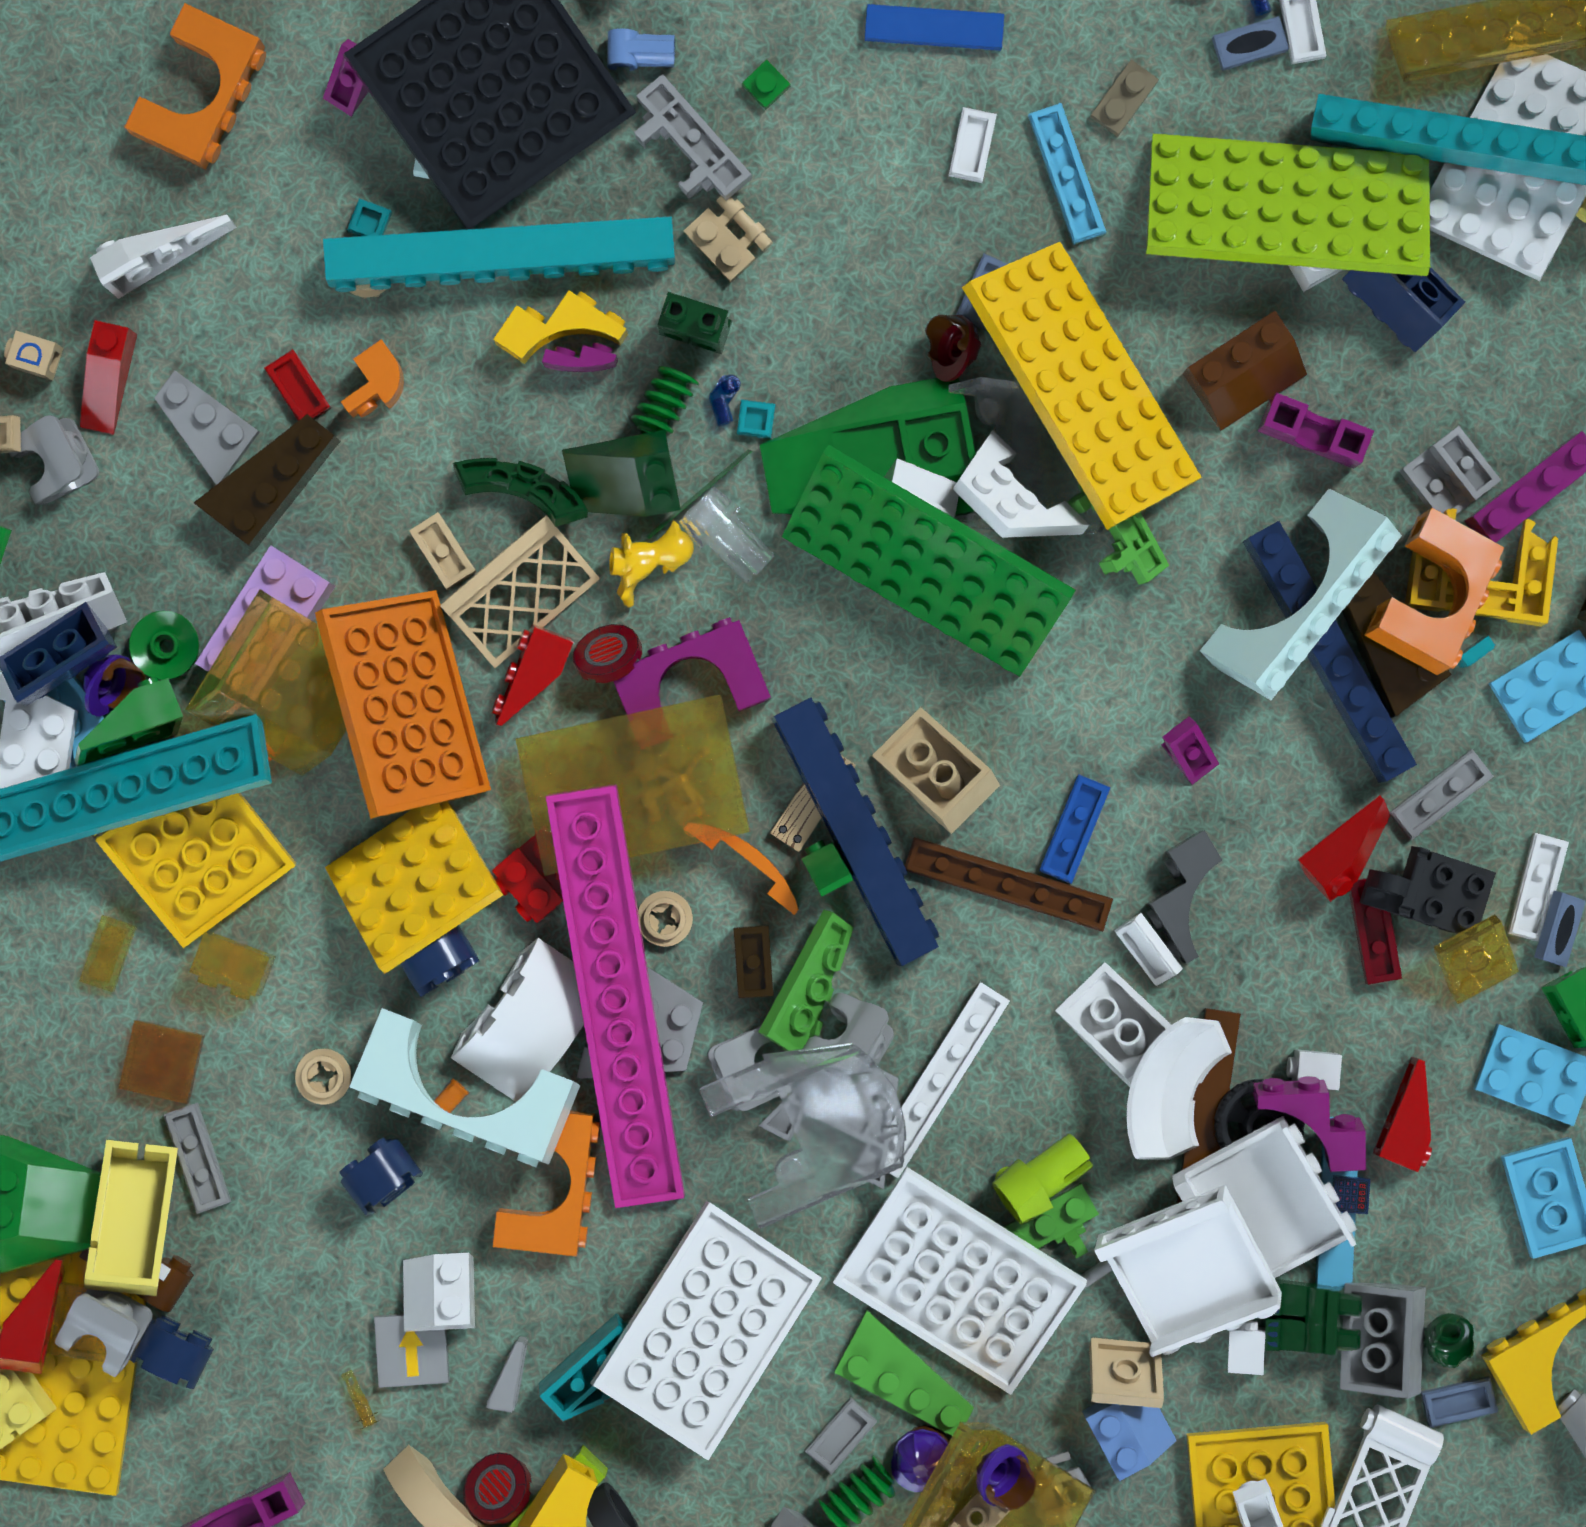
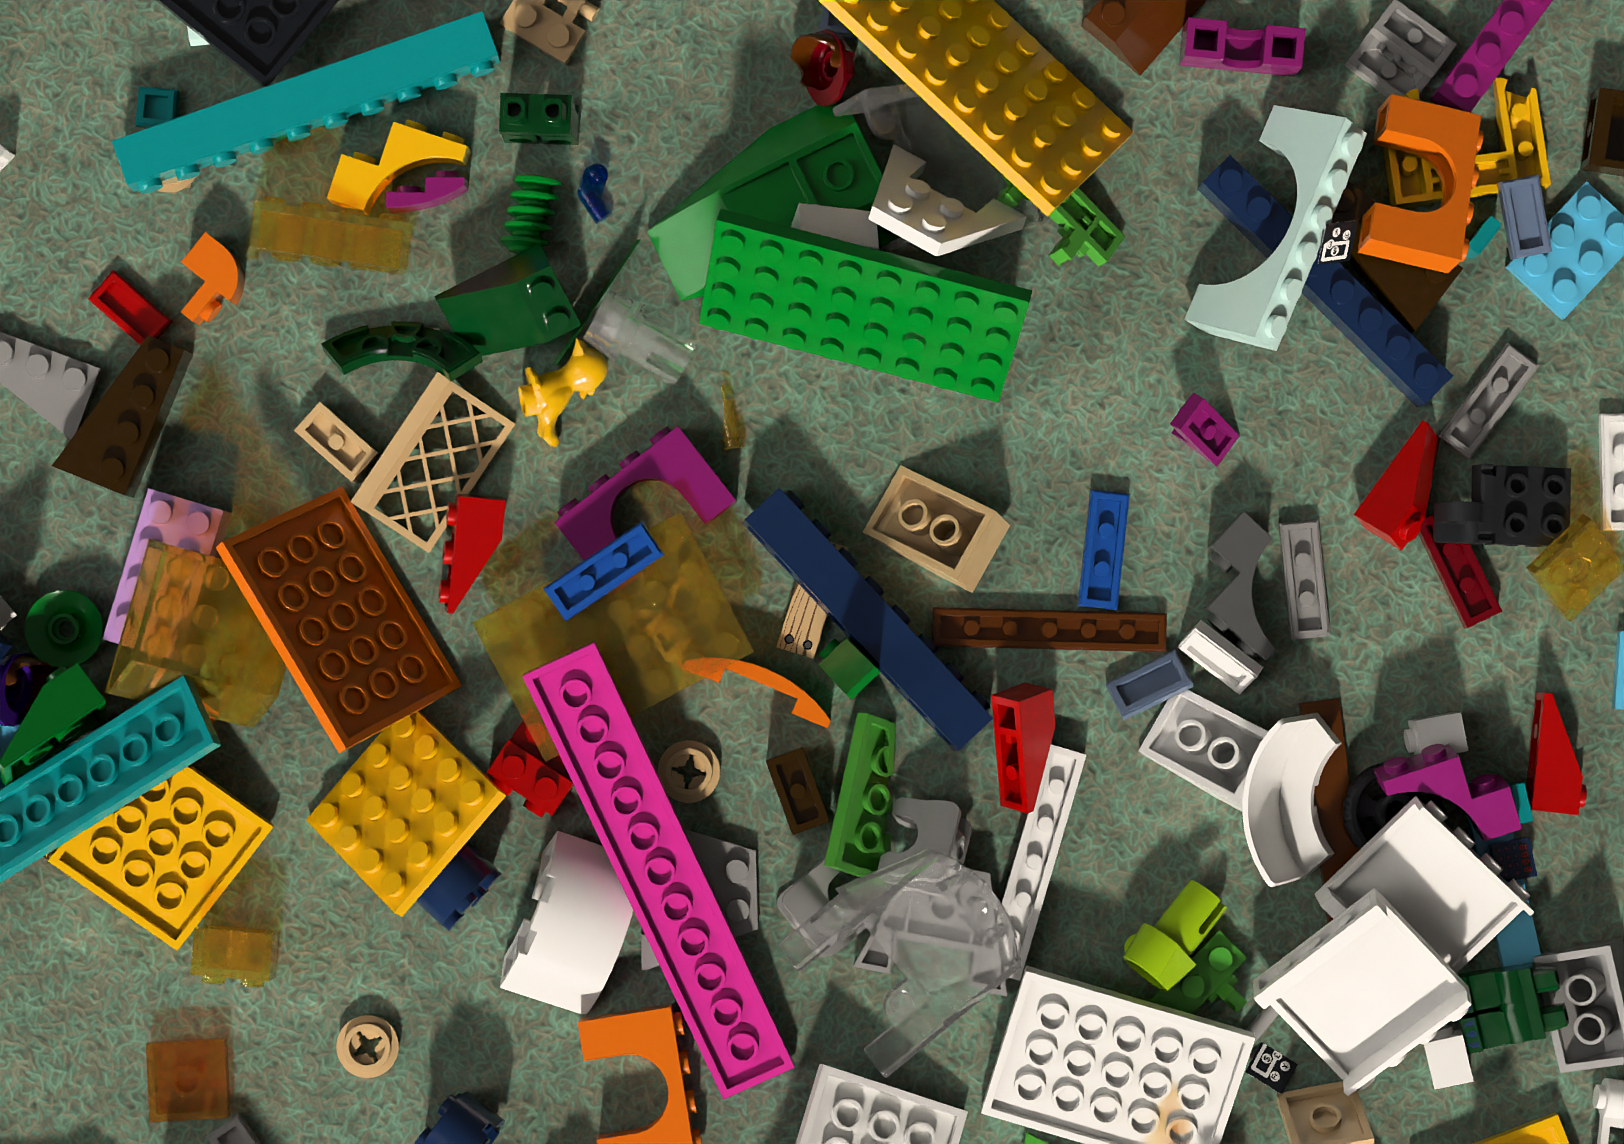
camera: 10 degrees left, 0 degrees up
(108, 953) = (97, 979): clear yellow plate -> none
(451, 1096) = (508, 1035): orange pin -> none
(485, 372) = (328, 236): none -> clear yellow wedge
(527, 1127) = (603, 1039): light aqua arch -> none
(607, 653) = (545, 502): tile -> none
(641, 726) = (604, 571): none -> blue tile
(756, 419) = (635, 204): teal tile -> none
(783, 632) = (729, 425): none -> clear yellow piece
(959, 970) = (1022, 741): none -> red slope
(1081, 956) = (1149, 685): none -> sand blue tile
(1093, 1314) = (1271, 1068): none -> black sticker
(1239, 903) = (1304, 579): none -> light grey tile
(1350, 622) = (1337, 242): none -> black sticker
(1372, 1146) = (1521, 801): none -> teal tile
(1516, 645) = (1524, 217): none -> sand blue tile

